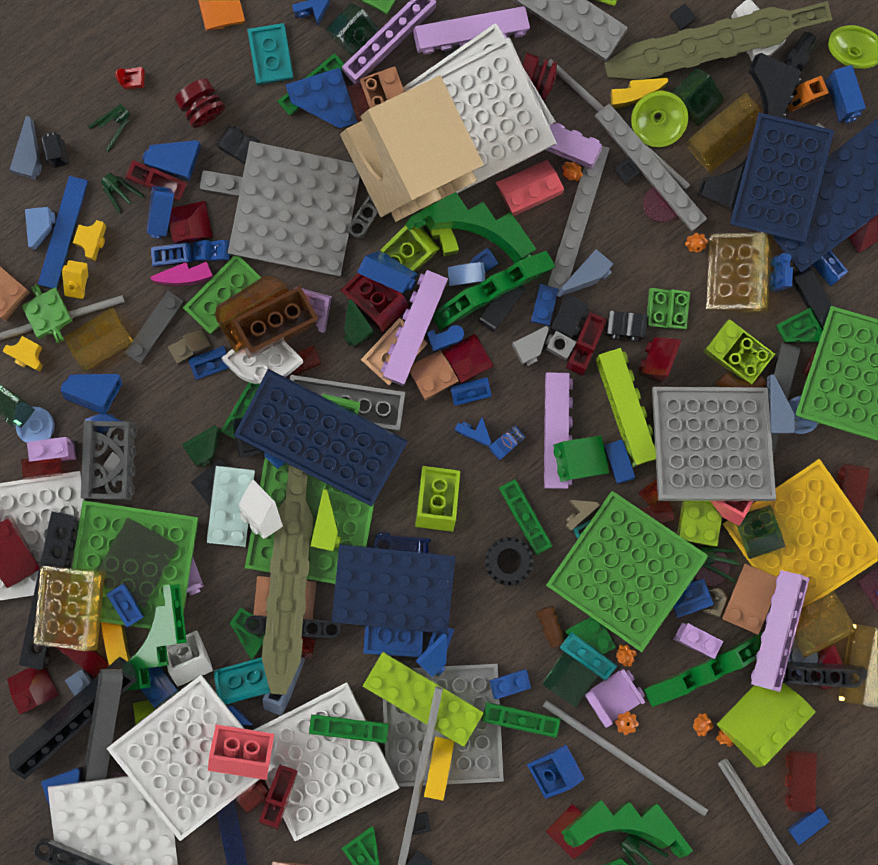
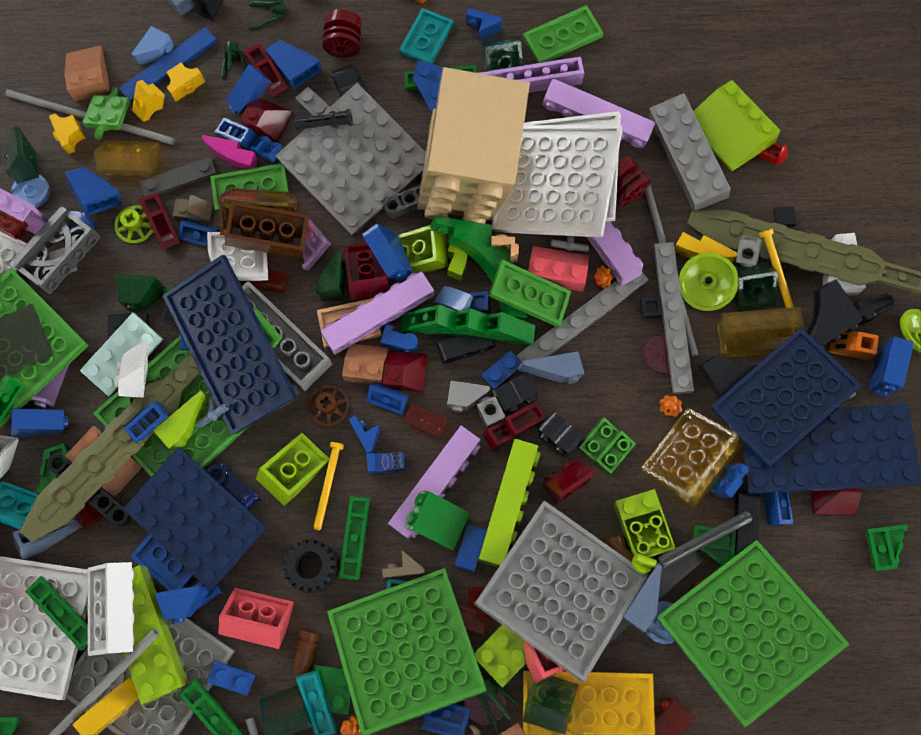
camera: 45 degrees right, 10 degrees down
(148, 392) = (132, 222): none -> lime wheel
(170, 376) = (159, 221): none -> dark red slope
(206, 606) = (37, 422): none -> blue slope
(259, 190) = (332, 119): none -> black pin
(298, 525) = (155, 405): none -> blue slope
(344, 499) = (213, 413): none -> sand blue piece
(389, 697) = (110, 609): none -> white slope
(426, 429) = (327, 405): none -> reddish brown wheel
(473, 491) = (336, 447): none -> yellow bar
(475, 199) = (505, 242): none -> light nougat bracket
(495, 628) = (255, 618): none -> coral slope
(514, 388) = (425, 421): none -> clear red plate
(526, 163) = (569, 245): none -> light grey piece
(526, 227) = (530, 293): none -> bright green plate
(672, 64) = (748, 242): none -> light grey brick
(682, 48) = (767, 234): none -> yellow bar
(759, 383) = (643, 563): none -> lime plate
(792, 331) = (705, 539): none -> dark grey axle

